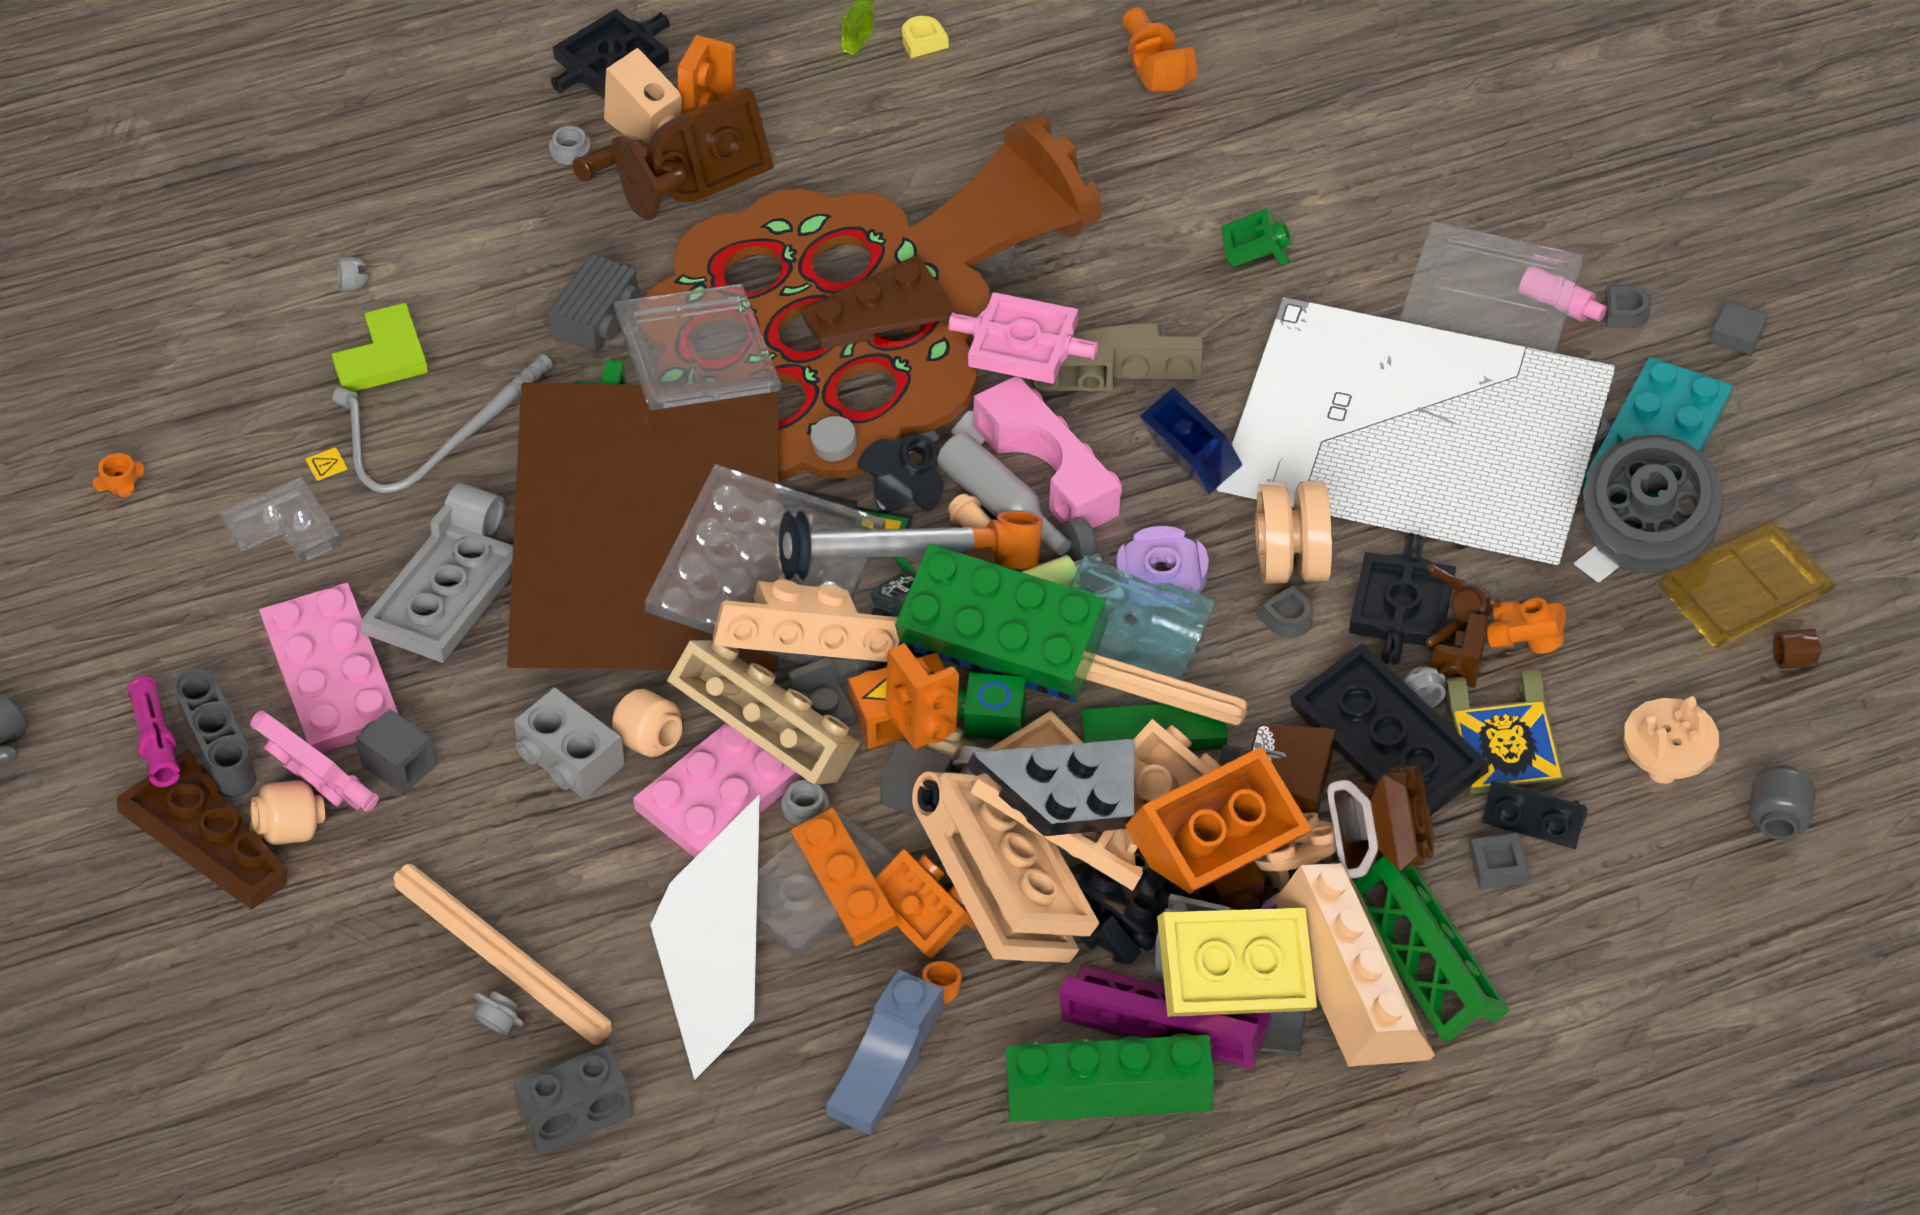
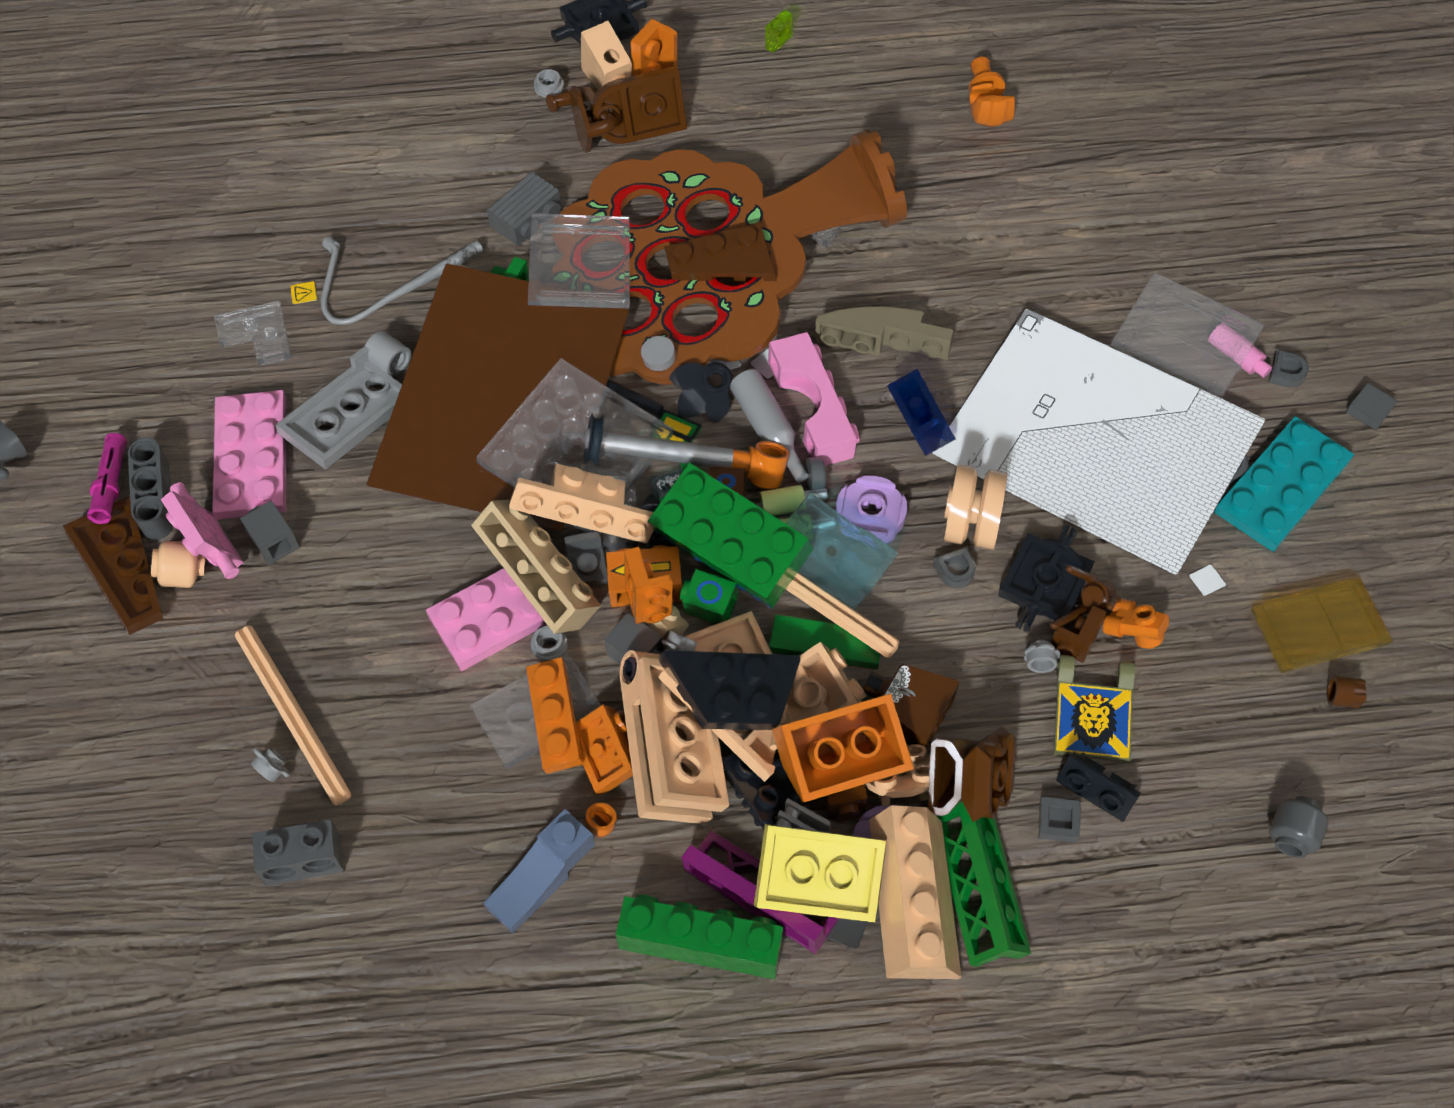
camera: 15 degrees right, 10 degrees up
(118, 474) = (157, 271): orange plate -> none
(348, 273) = (364, 149): light grey hinge -> none
(390, 357) = (374, 220): lime tile -> none
(568, 743) = (396, 553): light grey brick -> none
(647, 722) = (453, 551): light nougat head -> none
(709, 940) = (443, 741): white sticker -> none
(923, 36) = (825, 48): light yellow tile -> none
(966, 512) = (740, 433): light nougat pin -> none
(1023, 337) = (817, 304): bright pink plate -> none
(1113, 939) = (741, 817): black tile -> none
(1256, 237) = (1019, 255): green bracket -> none
(1388, 724) = (1003, 687): black plate -> none
(1646, 466) = (1275, 509): dark grey wheel -> none
(1654, 748) = (1208, 751): light nougat plate -> none

